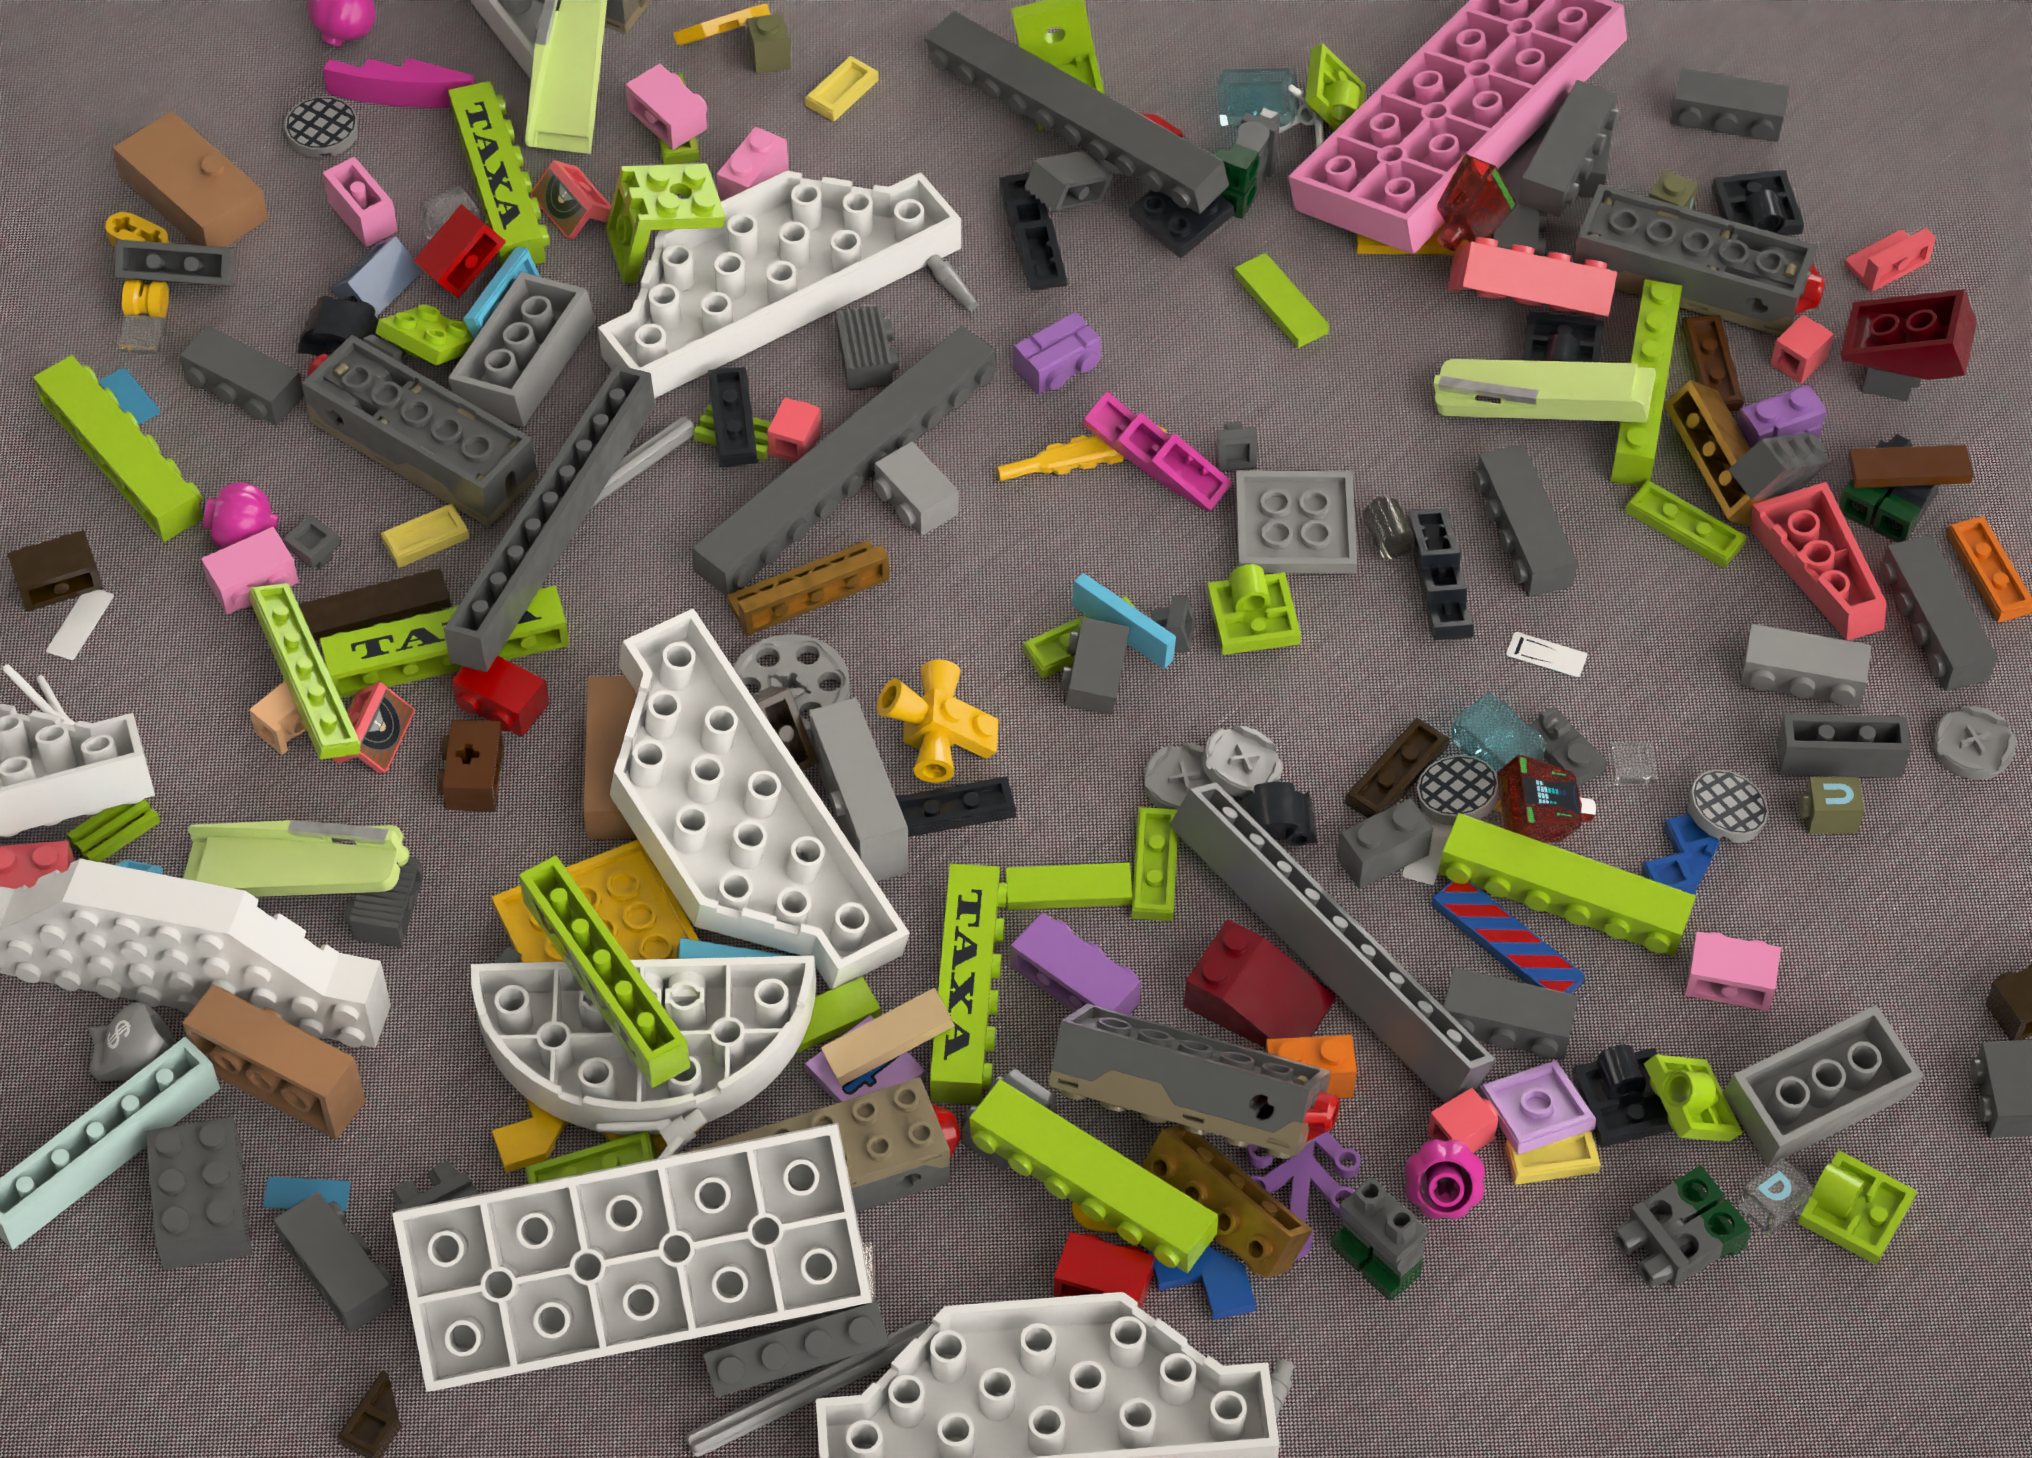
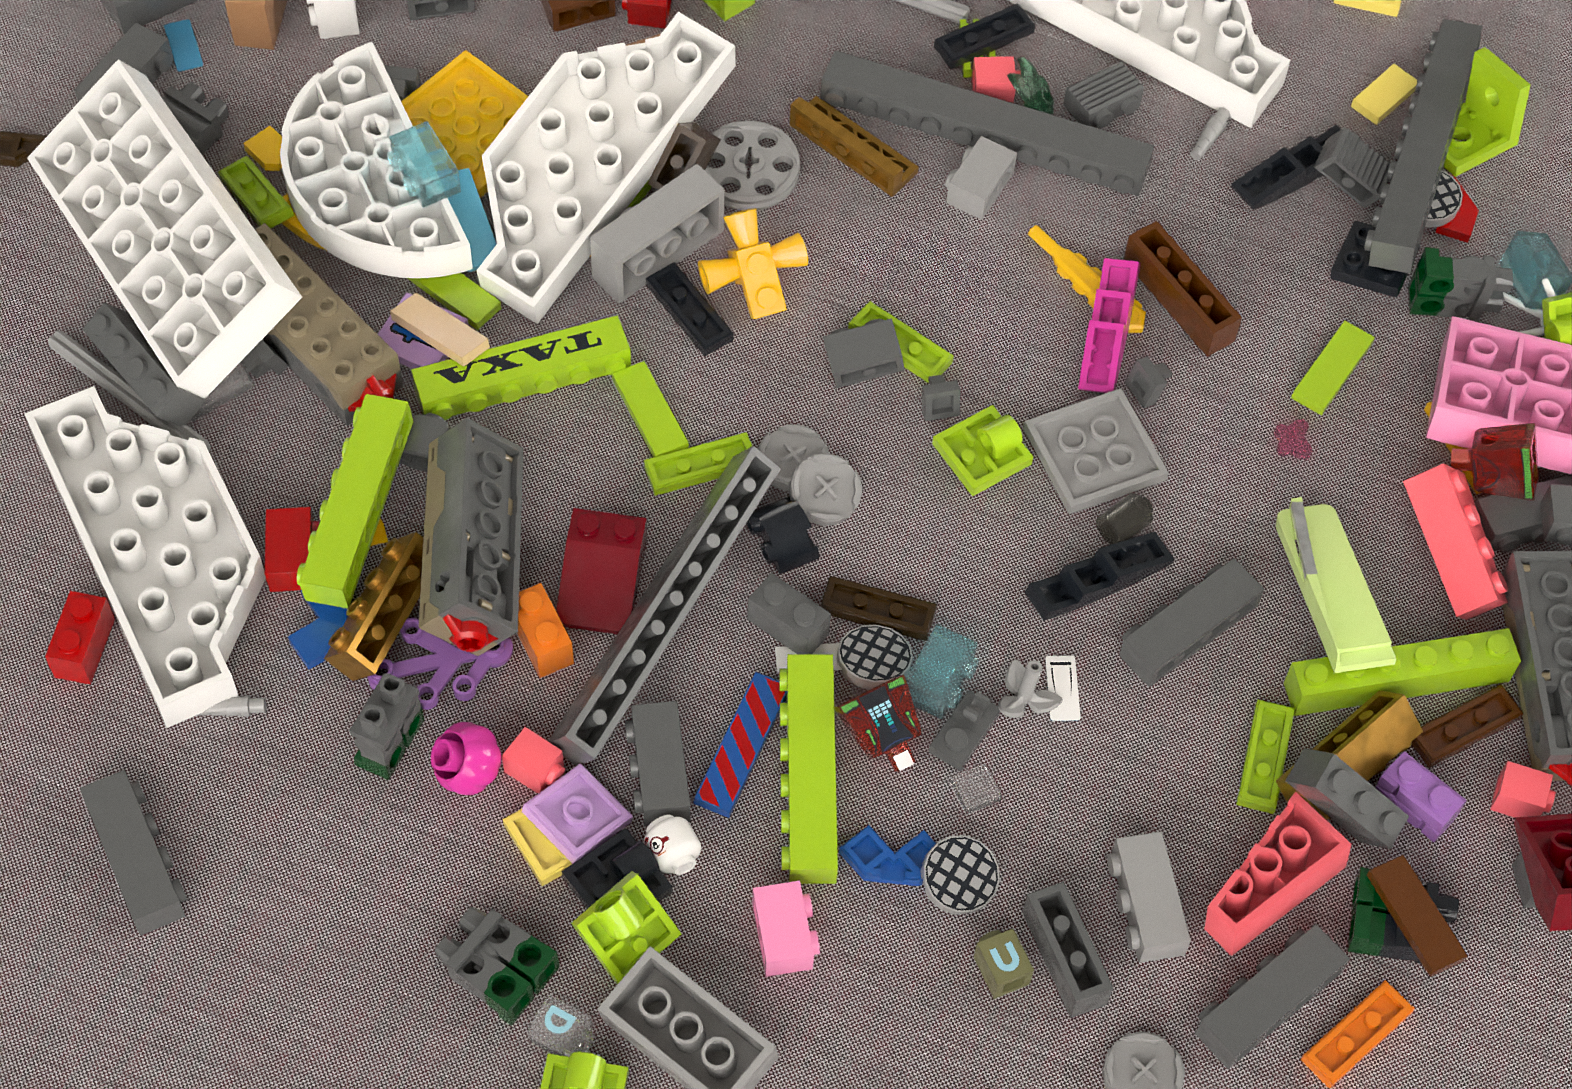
camera: 65 degrees right, 5 degrees up
(605, 971) = (380, 111): lime brick -> none
(674, 1132) = (286, 220): white plant -> none
(694, 956) = (424, 164): none -> clear light blue brick
(839, 404) = (1032, 87): none -> clear green plate
(975, 127) = (1384, 94): none -> light yellow tile
(1057, 353) = (1183, 222): medium lavender brick -> none
(1072, 968) = (563, 439): medium lavender brick -> none
(1144, 633) = (915, 355): medium azure tile -> none
(1145, 373) = (1183, 289): none -> reddish brown brick
(1348, 364) = (1292, 440): none -> clear pink piece
(1552, 675) = (1022, 683): none -> light grey plant
(1562, 338) = (1407, 594): black plate -> none
(1607, 1027) = (673, 844): none -> white head

